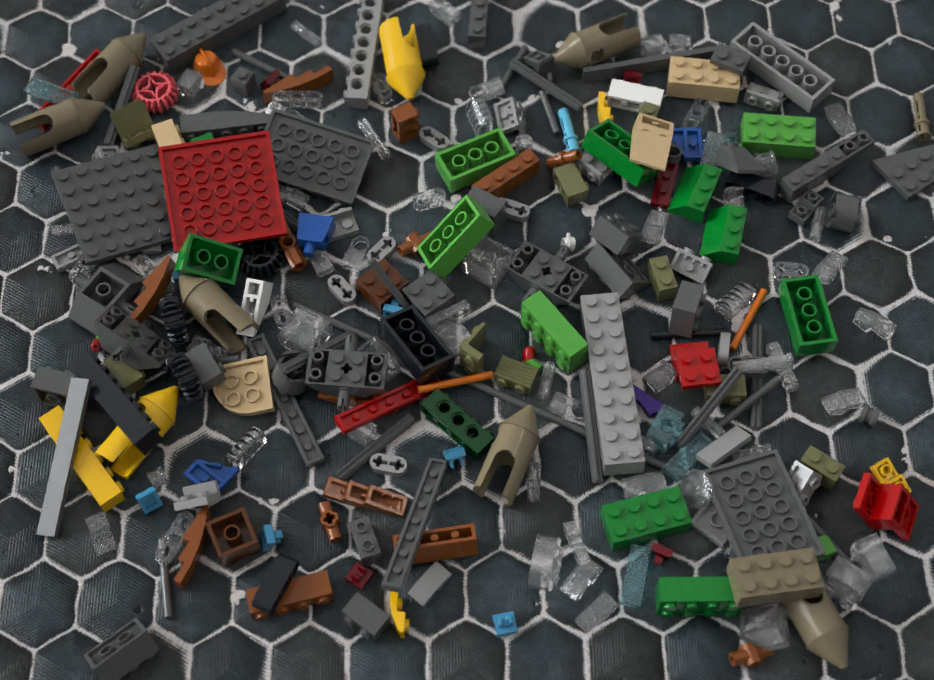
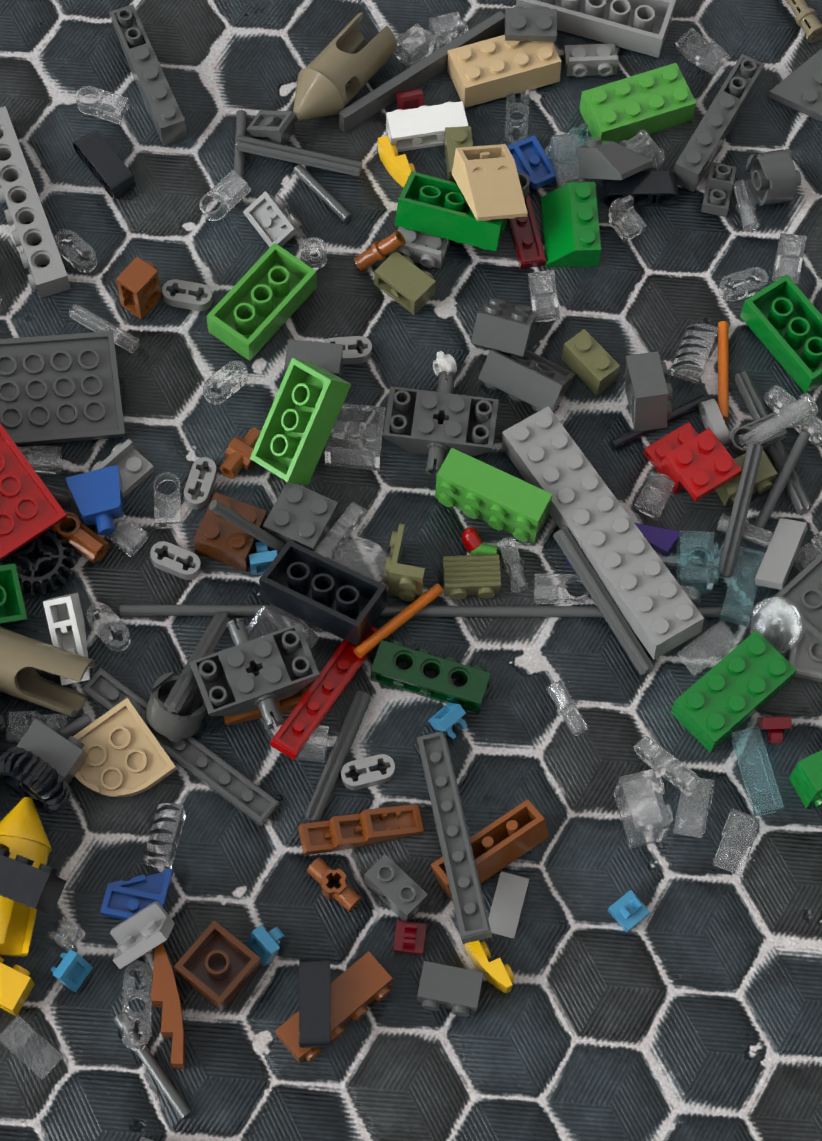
camera: 30 degrees left, 5 degrees up
(304, 331) = (160, 642): clear brick -> none
(401, 58) = (85, 197): yellow piece -> none
(479, 115) = (233, 236): clear brick -> none
(510, 174) = (318, 303): dark orange brick -> none
(513, 447) = (523, 673): dark tan piece -> none
(570, 138) = (371, 219): medium azure pin -> none
(691, 265) = (618, 329): light grey bracket -> none
(723, 234) = (637, 269): green slope -> none

